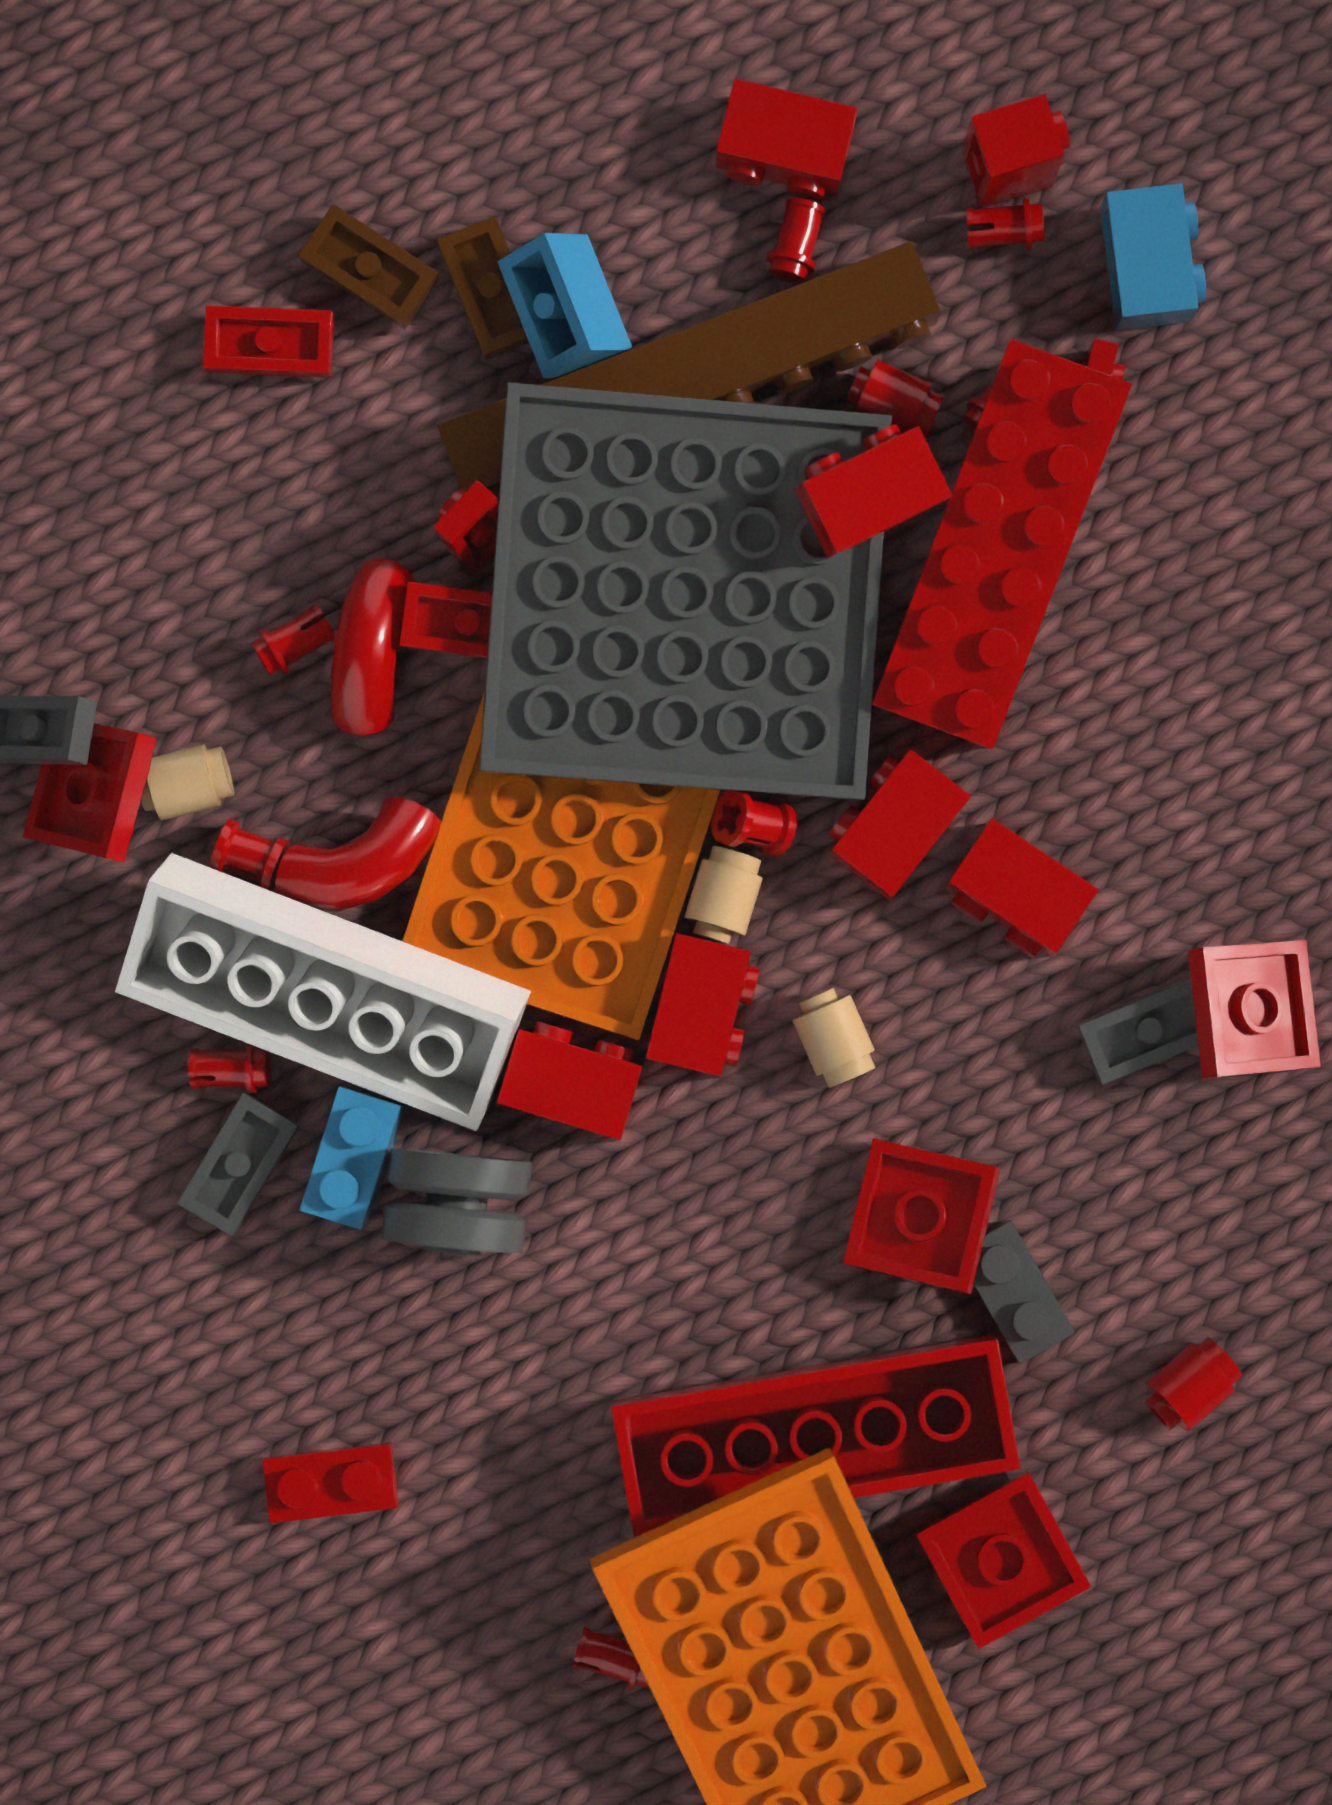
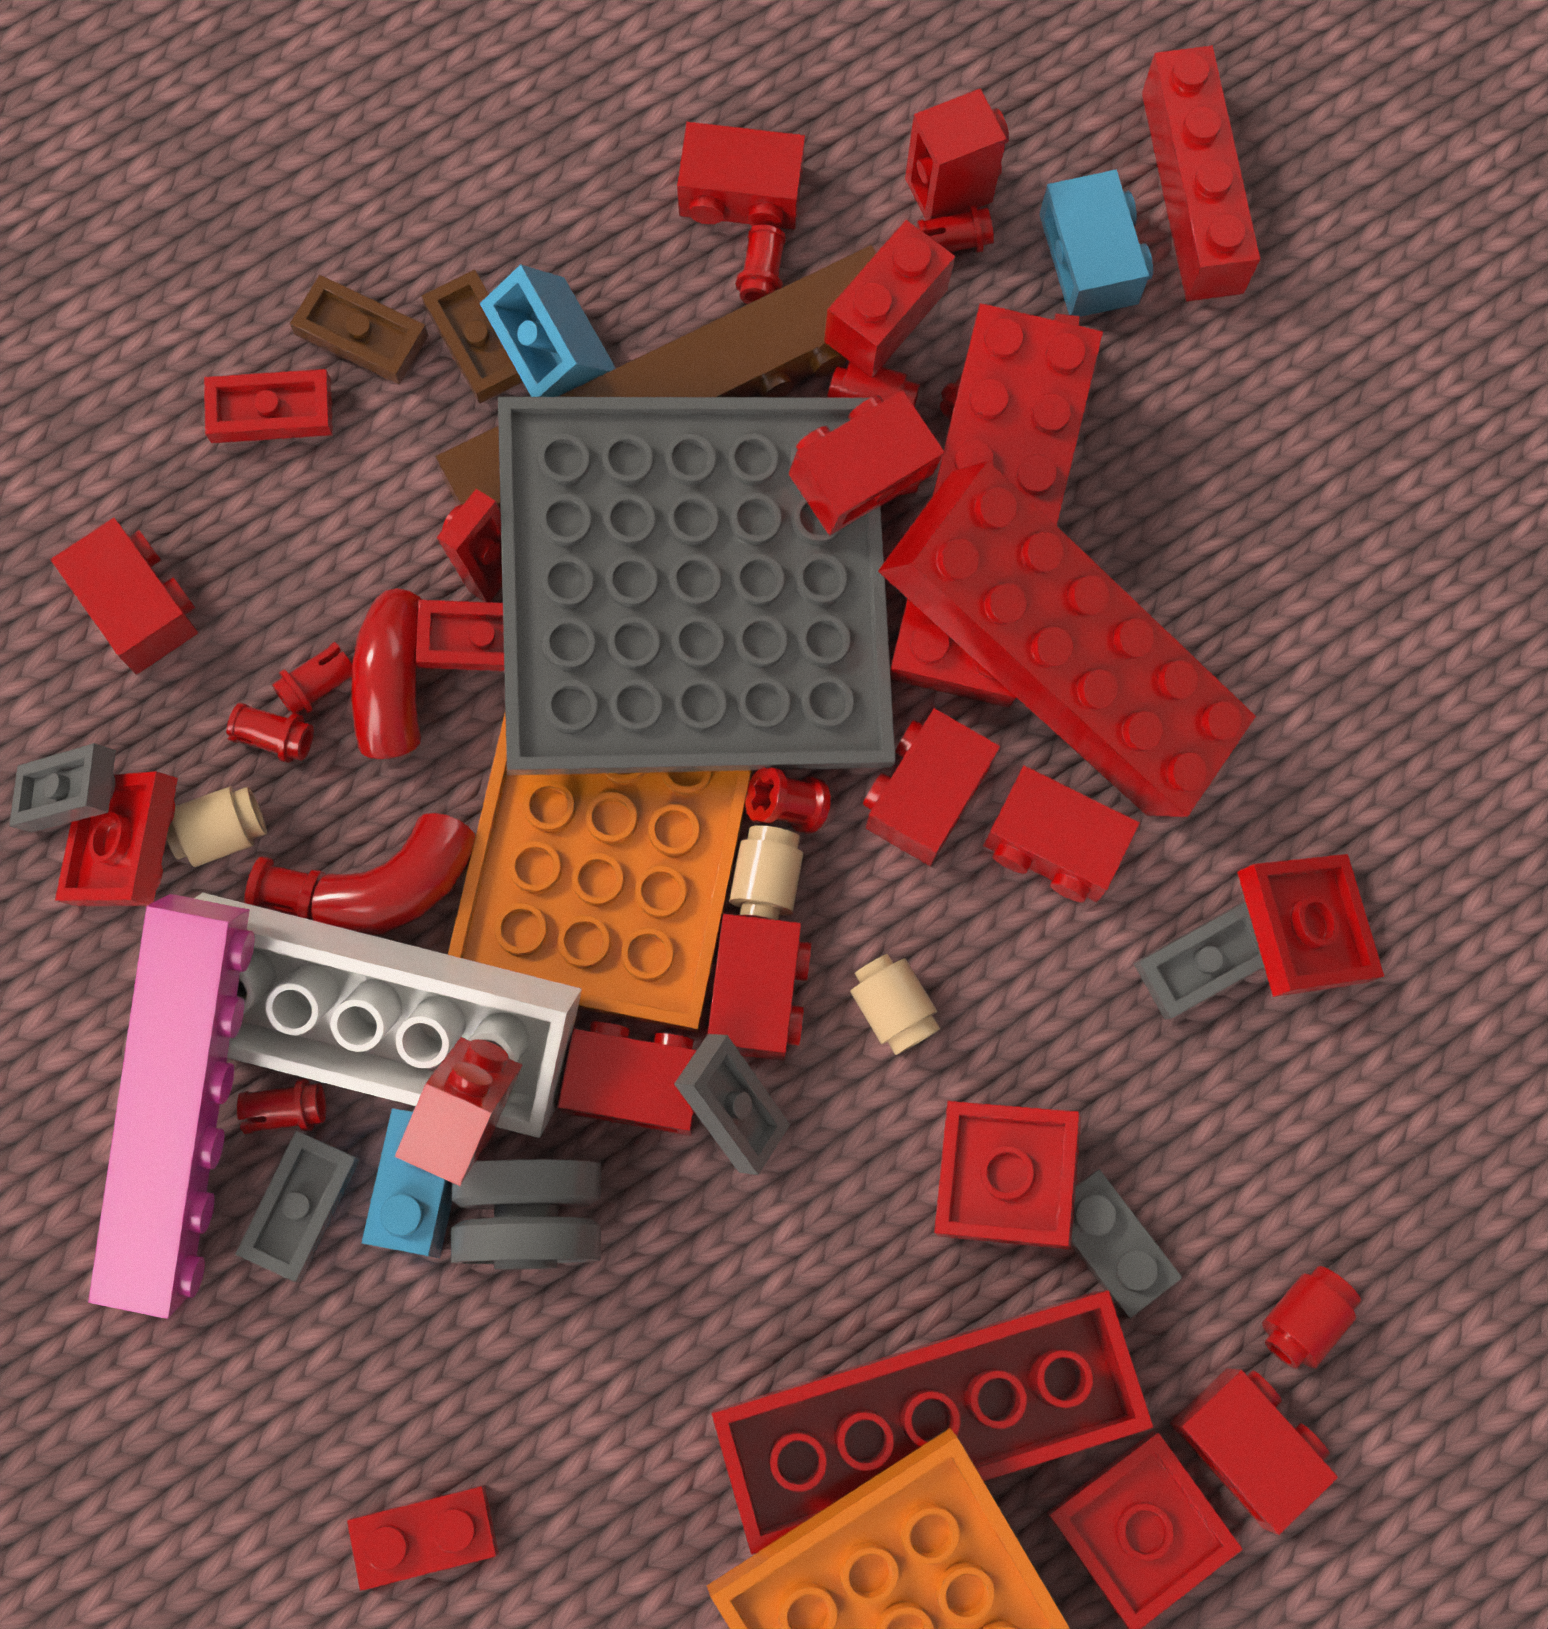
camera: 15 degrees left, 10 degrees down
(111, 532) = (125, 595): none -> red brick
(131, 1059) = (170, 1105): none -> brick
(246, 690) = (268, 731): none -> red pin
(407, 1103) = (459, 1109): none -> brick
(664, 1119) = (732, 1104): none -> dark grey plate
(920, 314) = (888, 298): none -> red brick
(1049, 706) = (1067, 641): none -> red brick
(1118, 1498) = (1254, 1448): none -> red brick
(1273, 189) = (1200, 174): none -> red brick

